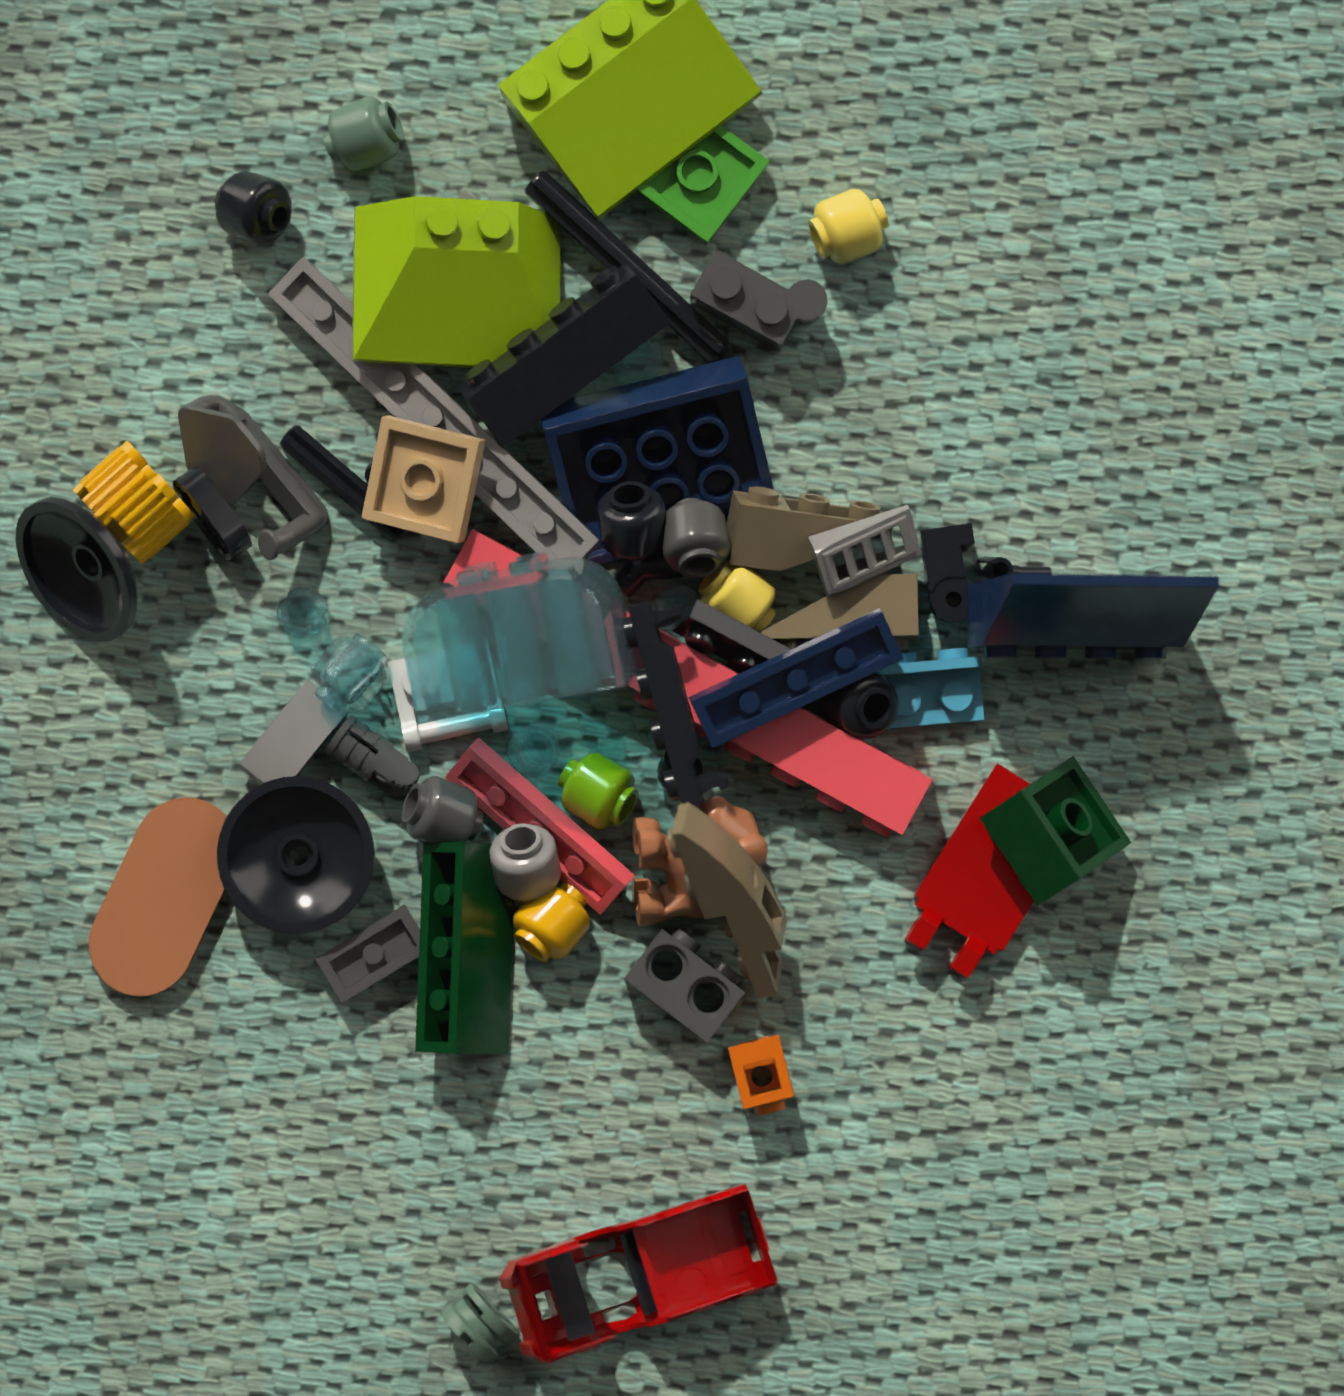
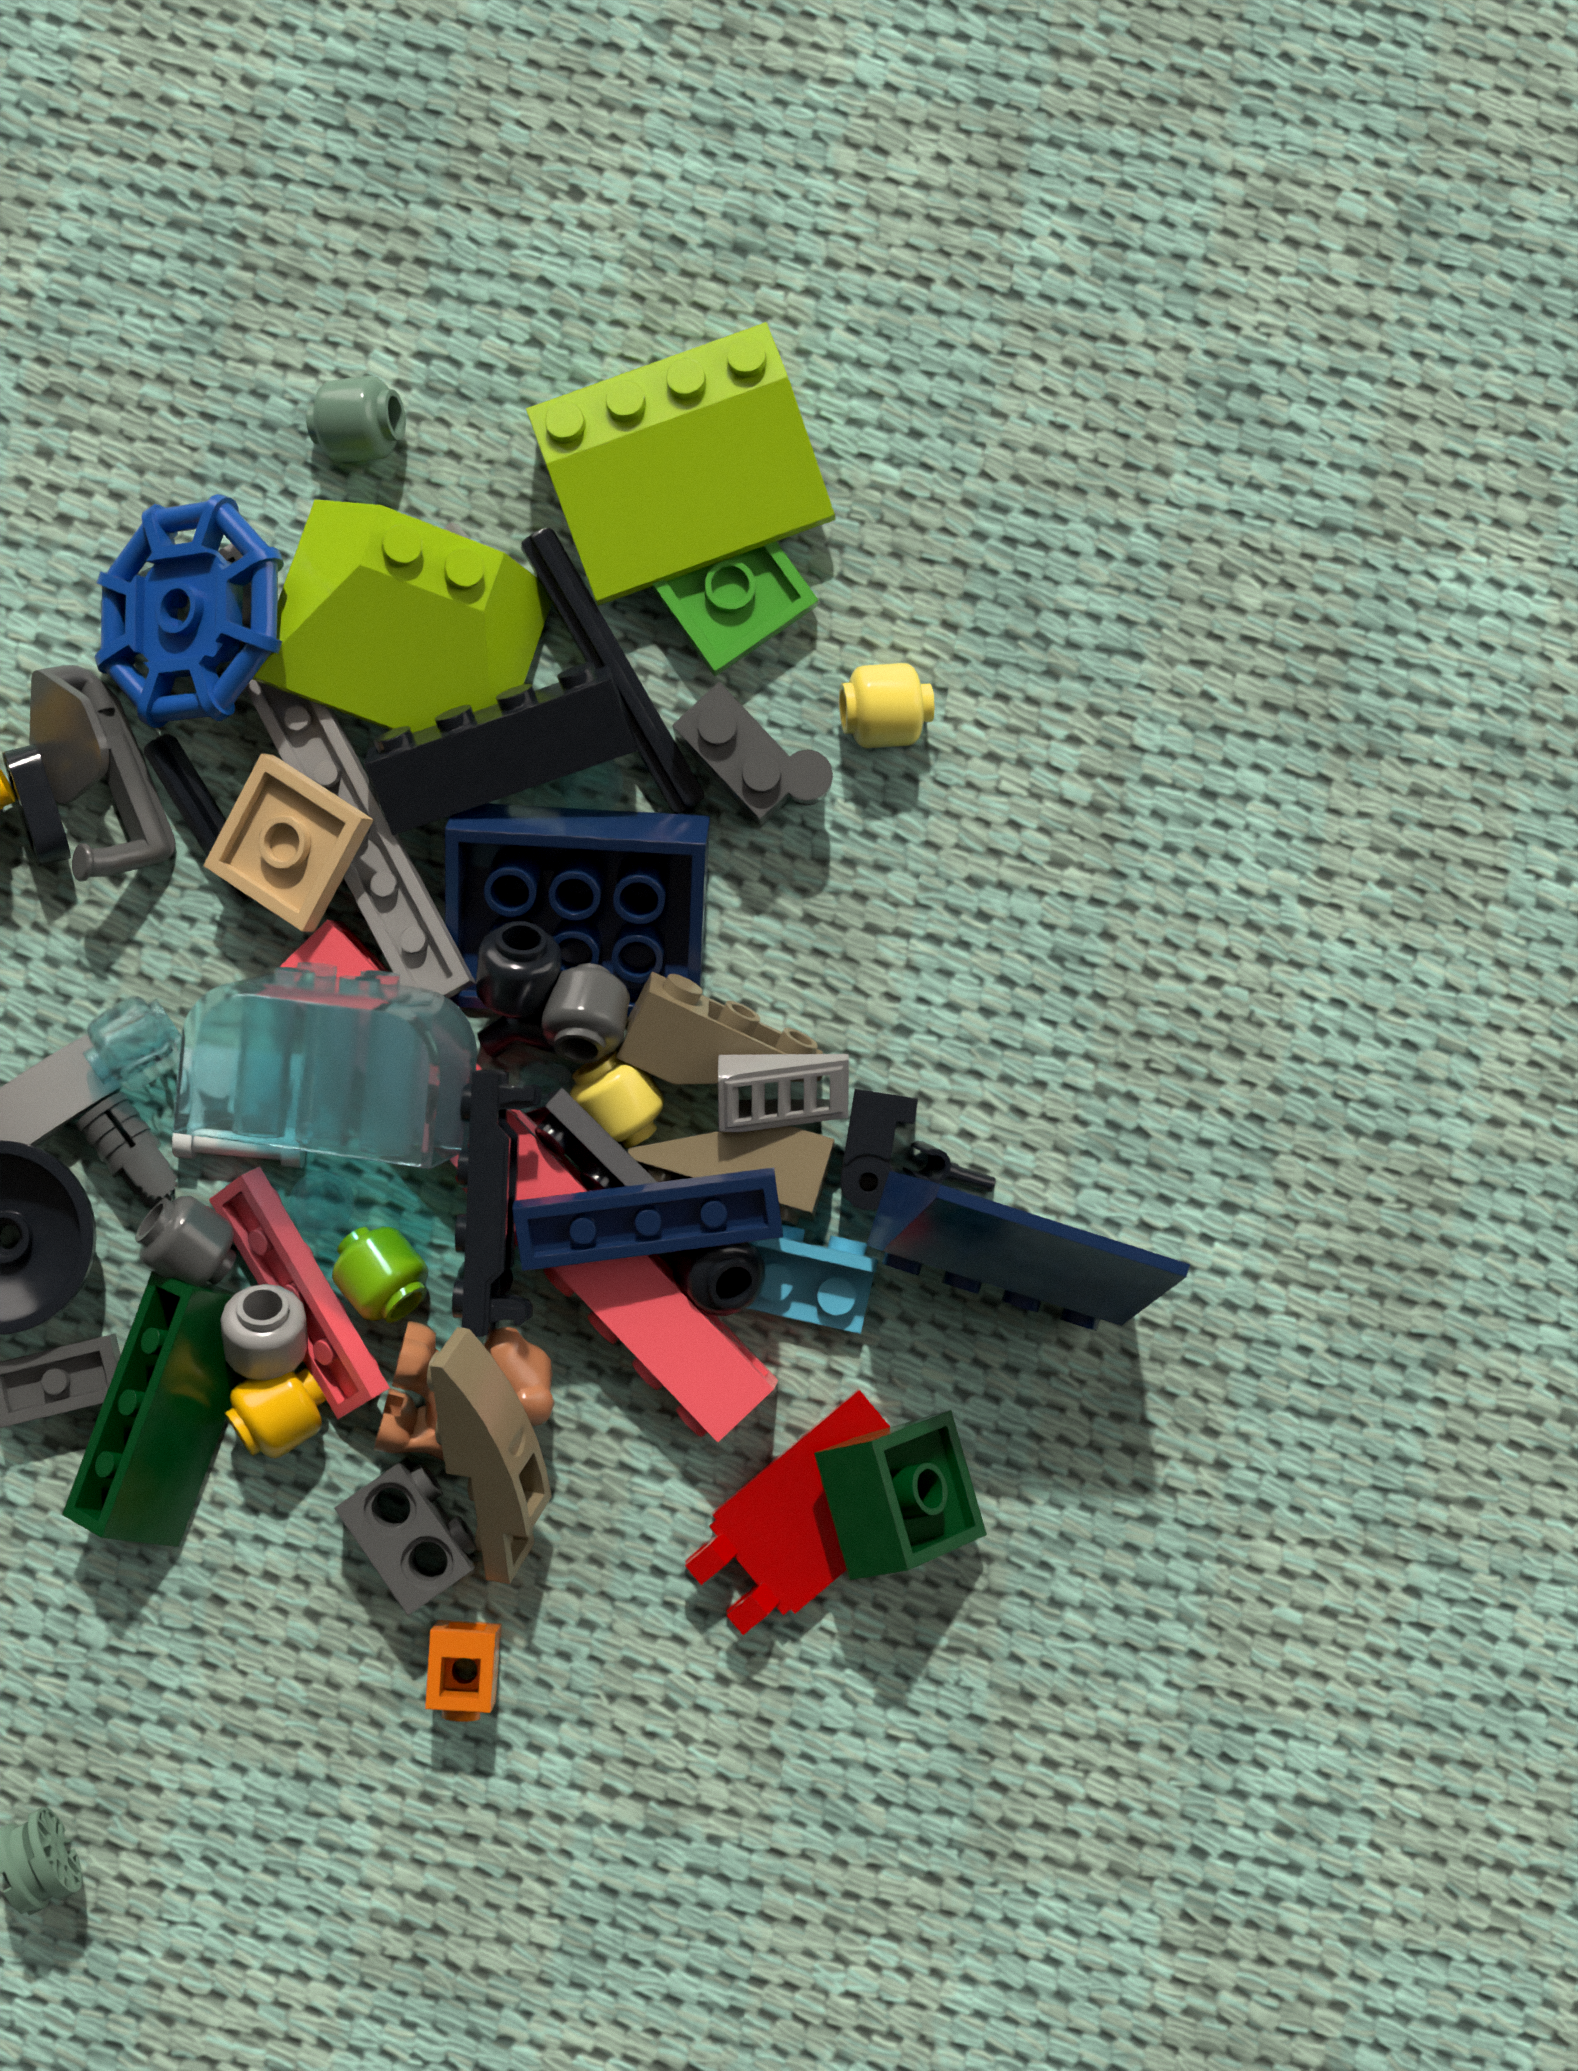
camera: 15 degrees right, 0 degrees up
(253, 207) = (197, 461): black head -> none
(288, 613) = (90, 950): clear light blue plate -> none
(310, 331) = (143, 611): none -> blue plate
(679, 1266) = (295, 1872): red piece -> none

